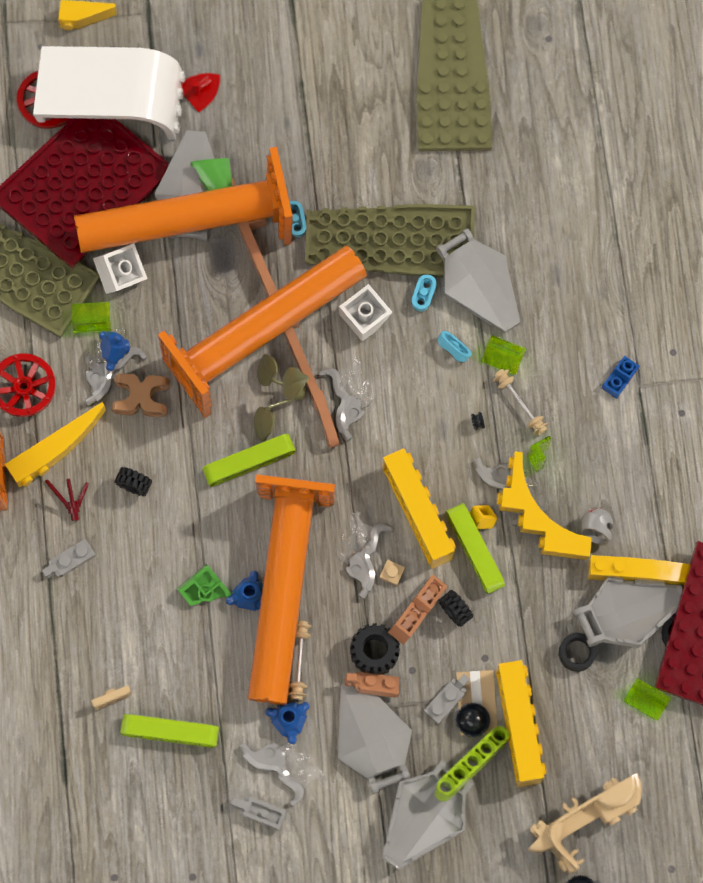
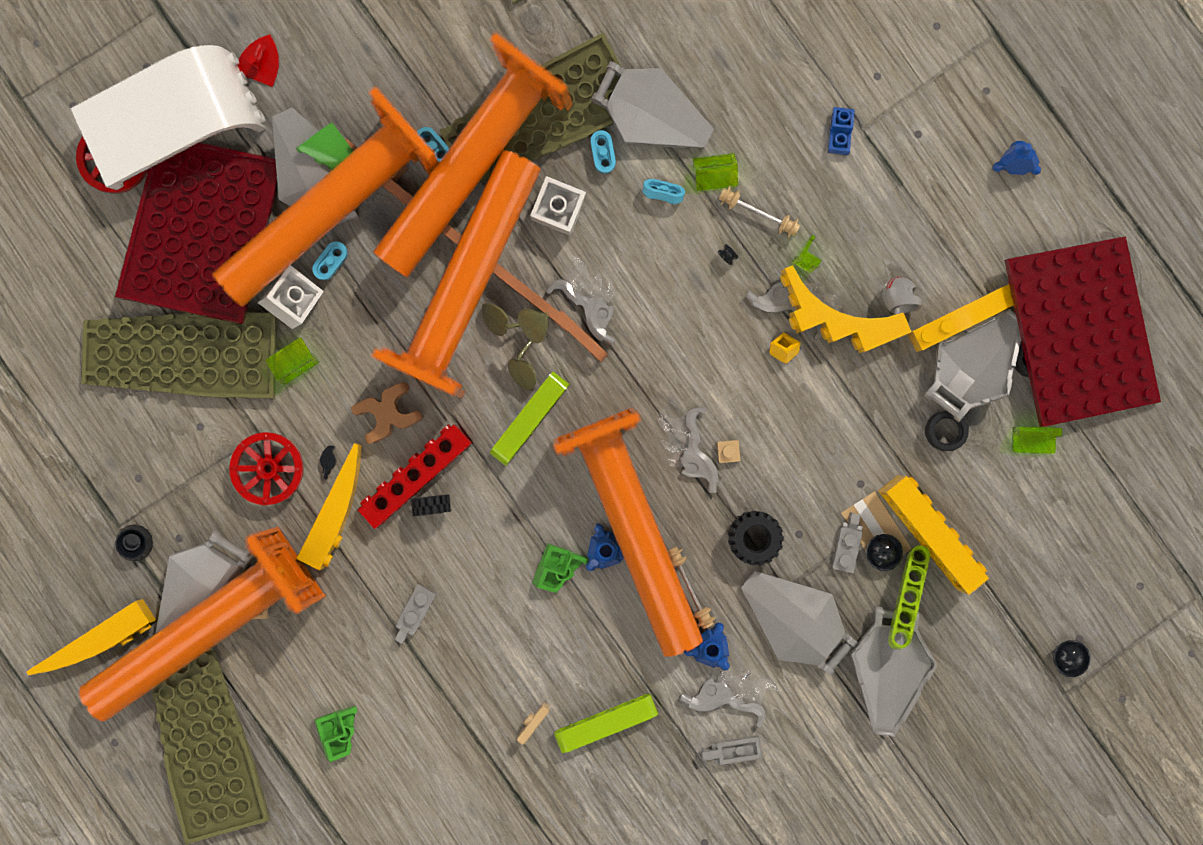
camera: 30 degrees left, 15 degrees up
(72, 506) = (384, 559): dark red plant -> none
(73, 407) = (328, 460): none -> black piece
(82, 13) = (92, 47): yellow slope -> none
(100, 377) = (333, 396): light grey piece -> none
(113, 348) = (332, 382): blue rock -> none
(144, 458) = (377, 516): none -> red brick
(164, 258) = (329, 260): none -> medium azure plate
(318, 237) = (470, 156): none -> orange piece
(373, 684) = (772, 572): nougat hinge -> none
(417, 609) = (775, 477): nougat slope -> none
(418, 509) = (721, 377): yellow brick -> none
(455, 608) = (811, 455): black tyre -> none
(475, 548) = (795, 383): lime beam -> none
(609, 806) = (1056, 562): tan piece -> none

